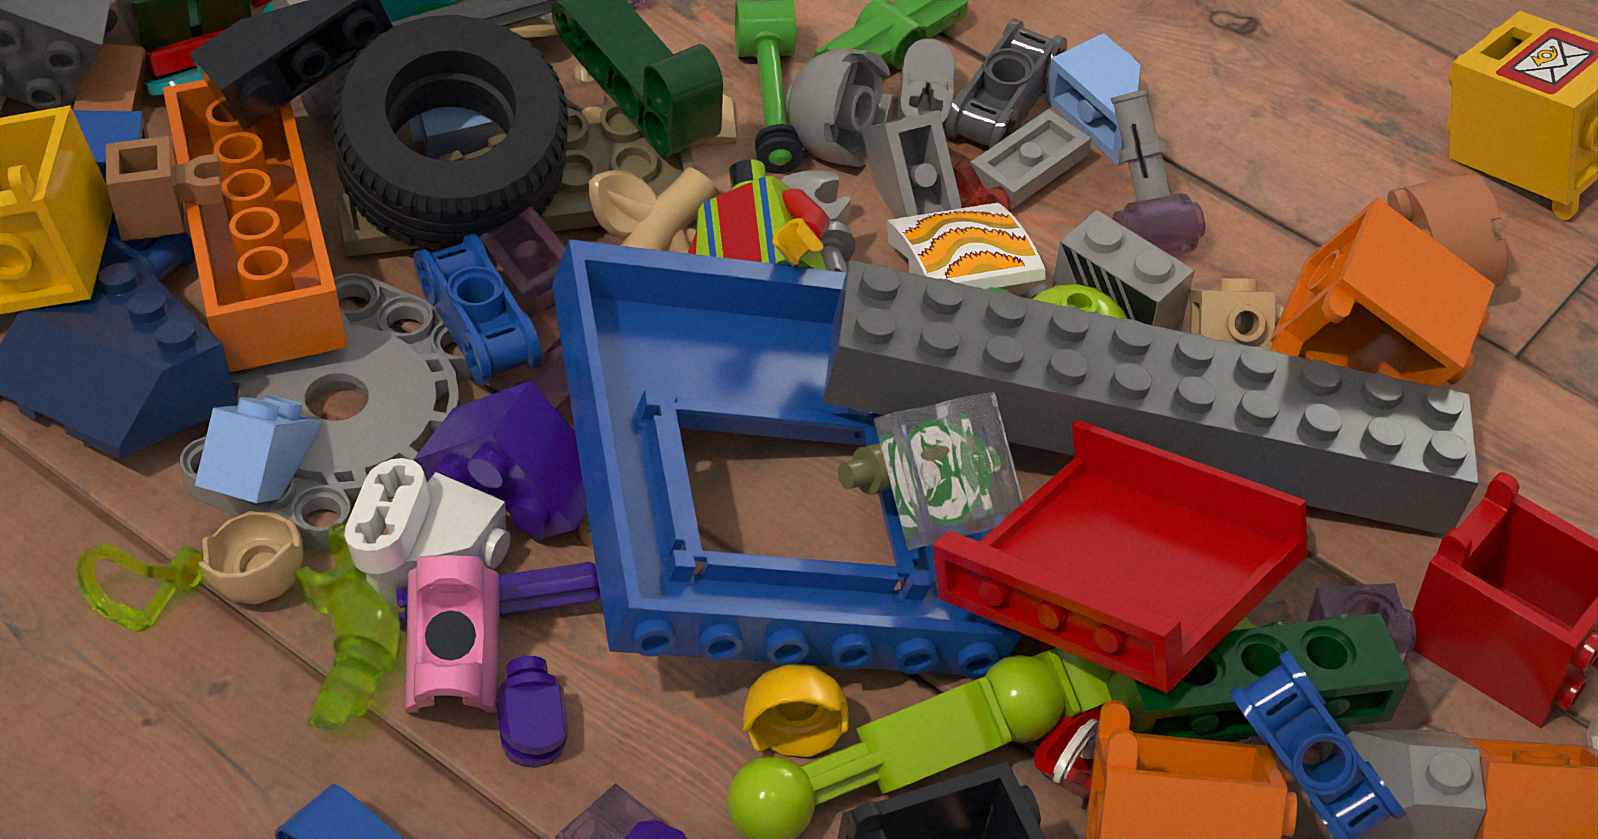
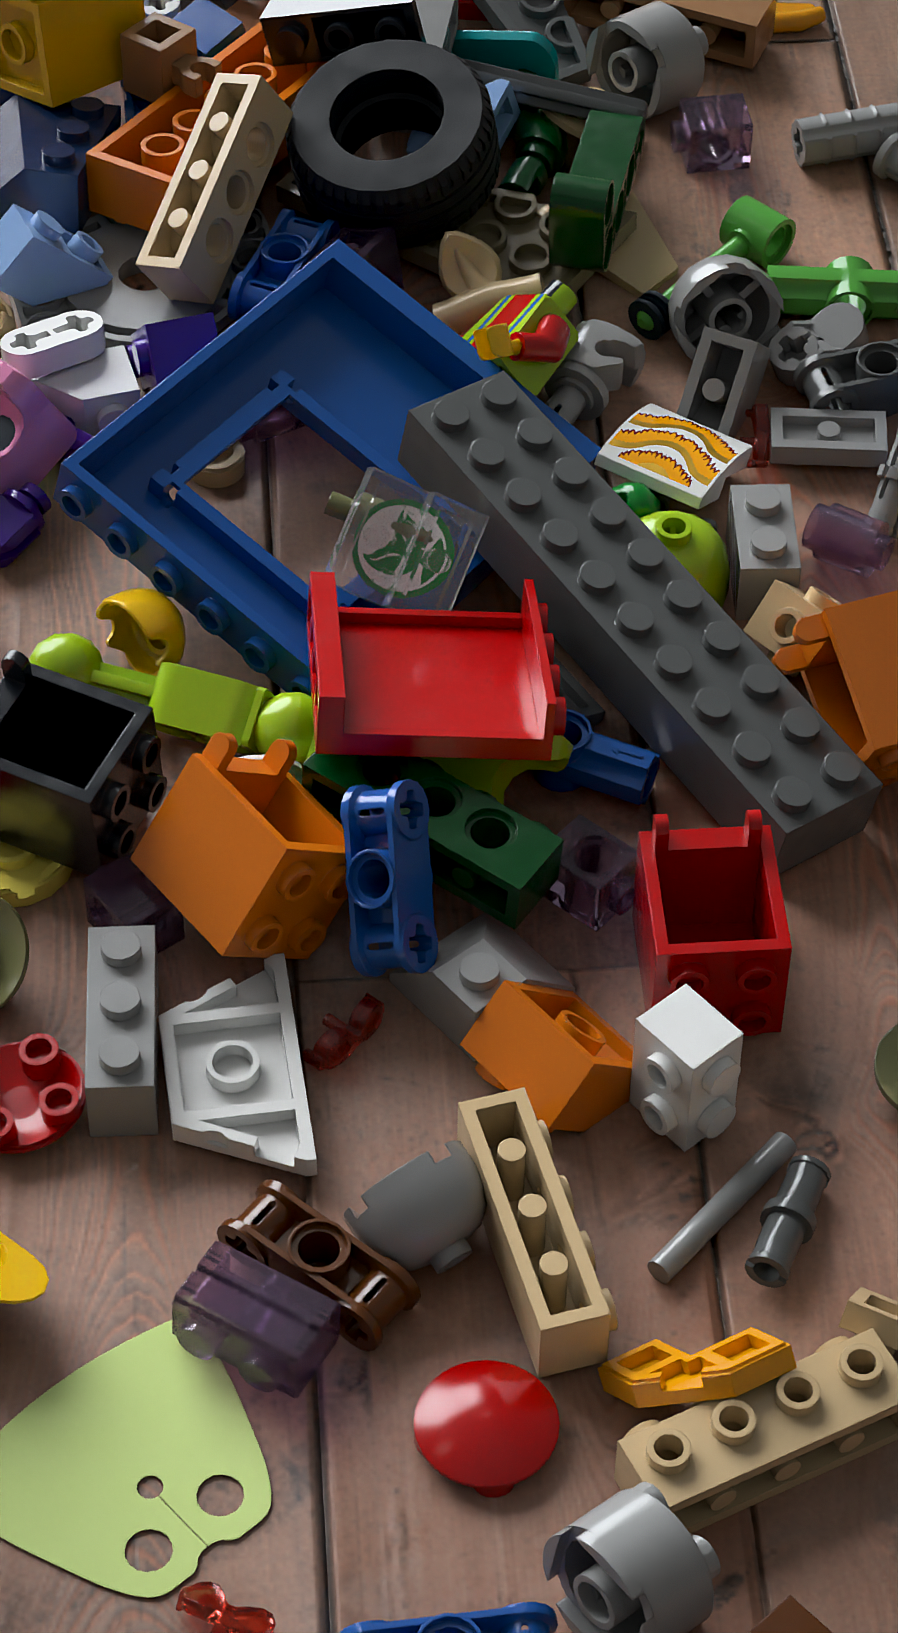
camera: 50 degrees right, 0 degrees up
(367, 270) = (214, 188): none -> tan brick

